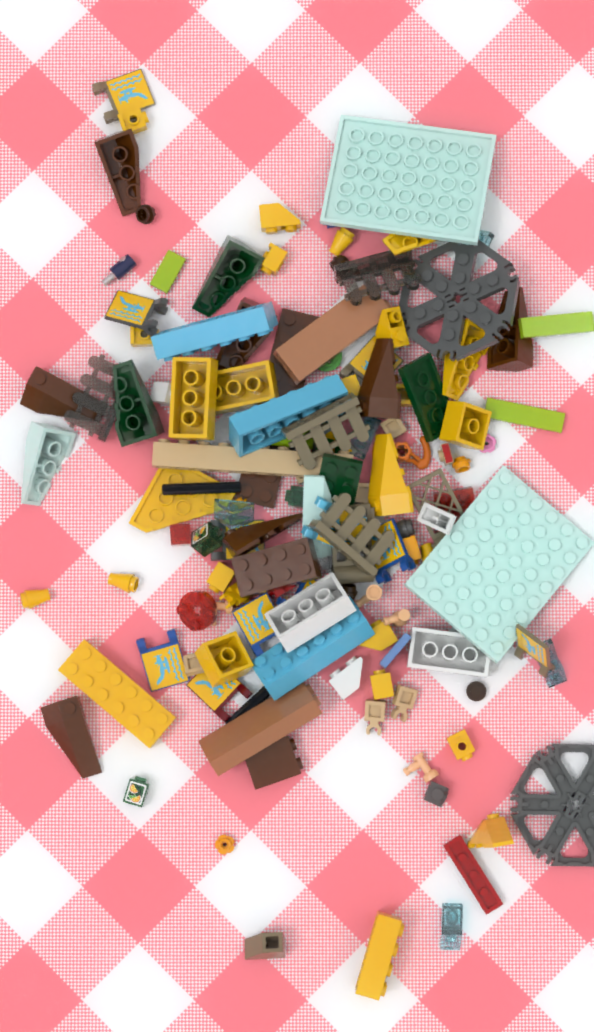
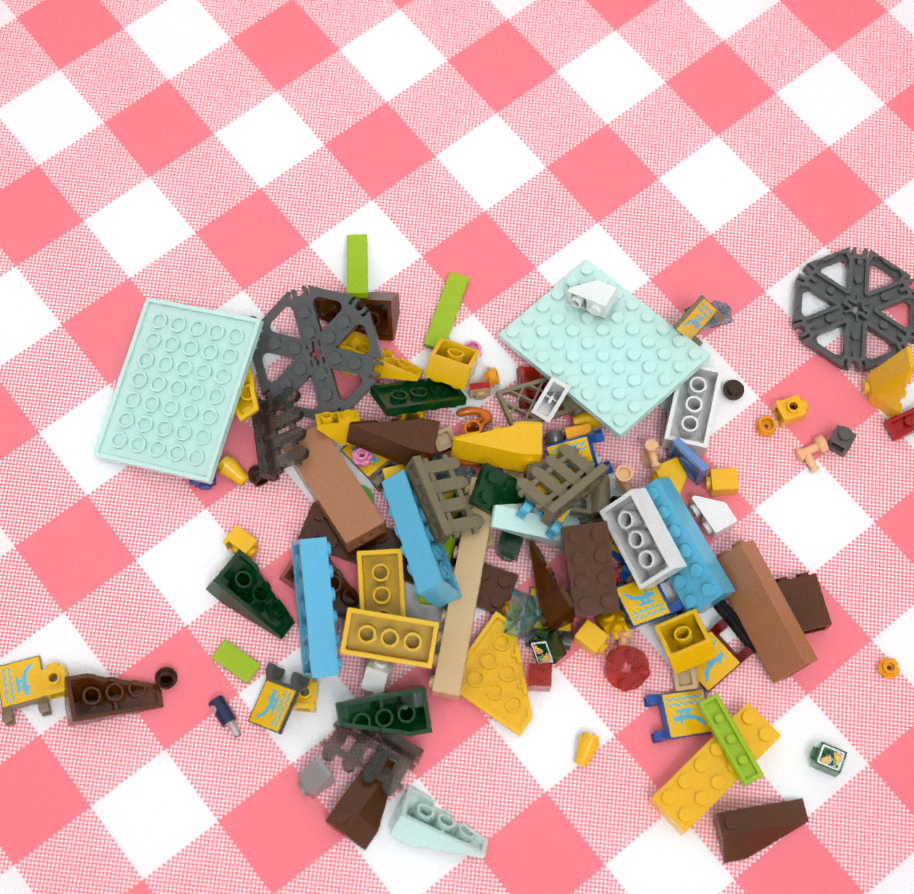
camera: 90 degrees left, 15 degrees down
(32, 598) = (596, 856): yellow cone -> none
(72, 353) = (315, 778): none -> light grey slope
(138, 702) = (730, 740): none -> lime tile
(201, 488) = (489, 647): black axle -> none
(276, 218) = (194, 534): yellow slope -> none
(362, 351) = (362, 461): none -> bright pink plate
(374, 713) = (751, 493): tan plate -> none
(404, 699) = (738, 459): tan plate -> none
(448, 723) = (770, 422): none -> light orange plate
(546, 549) = (593, 297): none -> white slope

